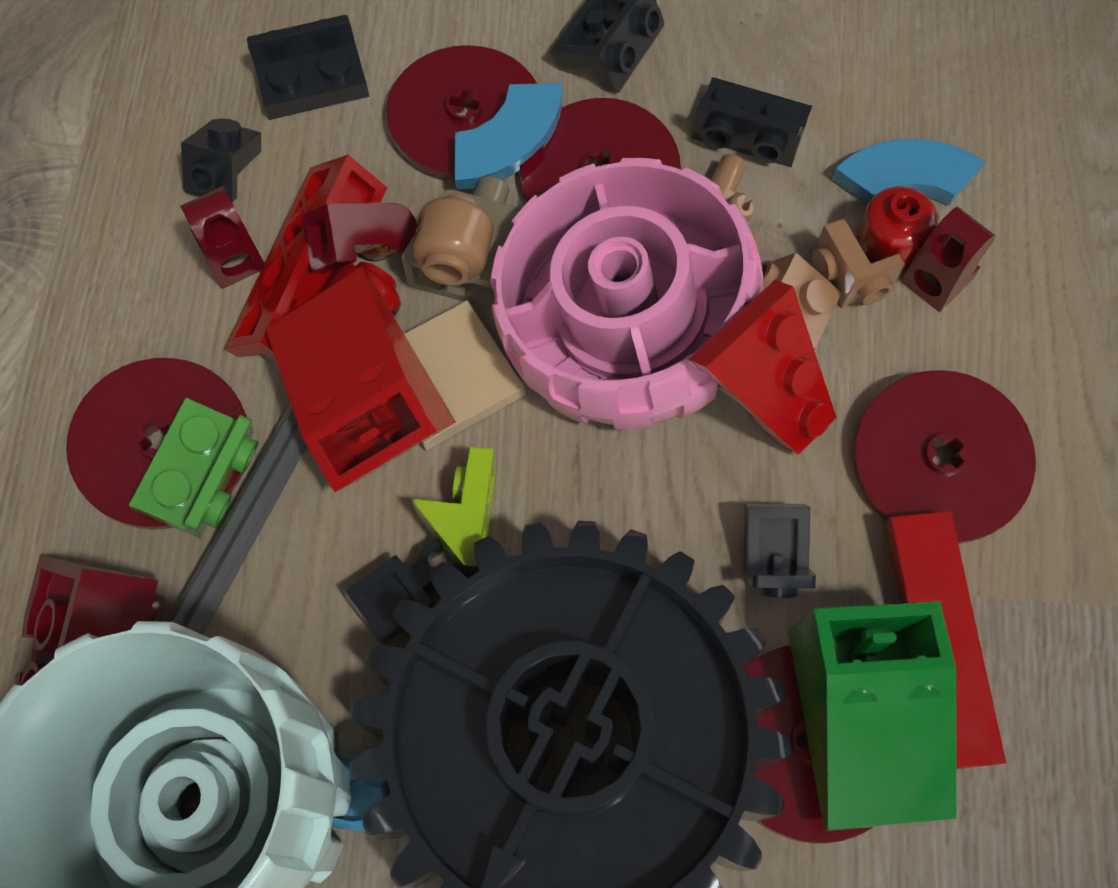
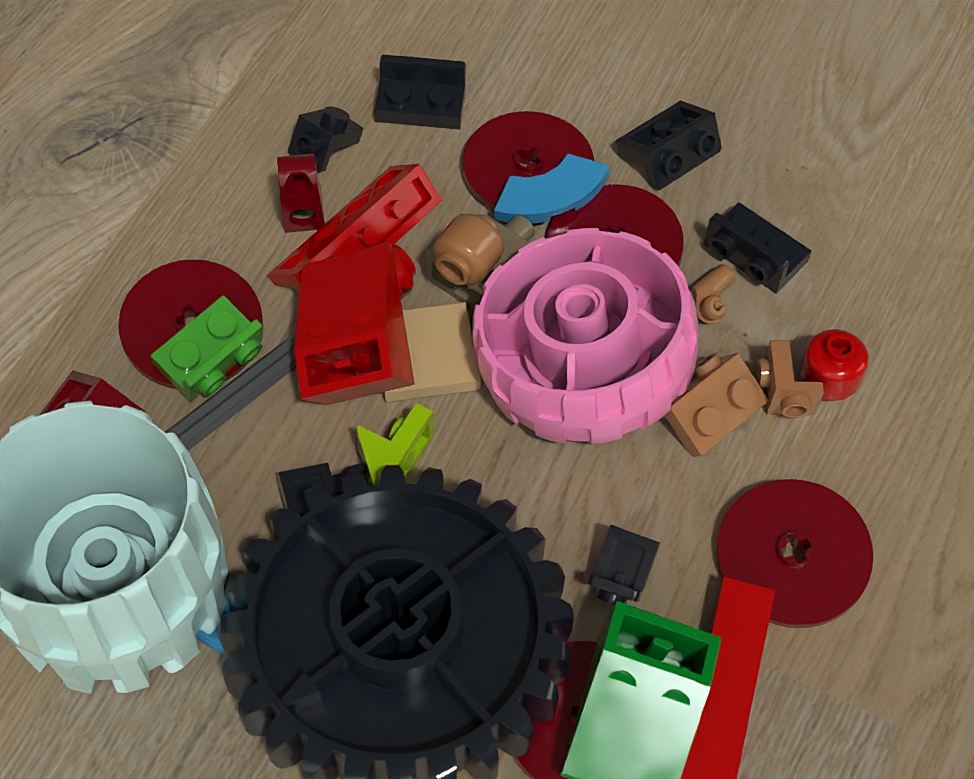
camera: 20 degrees right, 10 degrees down
(344, 229) = (399, 218): dark red leg -> none
(771, 368) = (670, 426): red wing -> none
(921, 164) = (877, 325): dark azure tile -> none
(951, 256) = (866, 395): dark red leg -> none

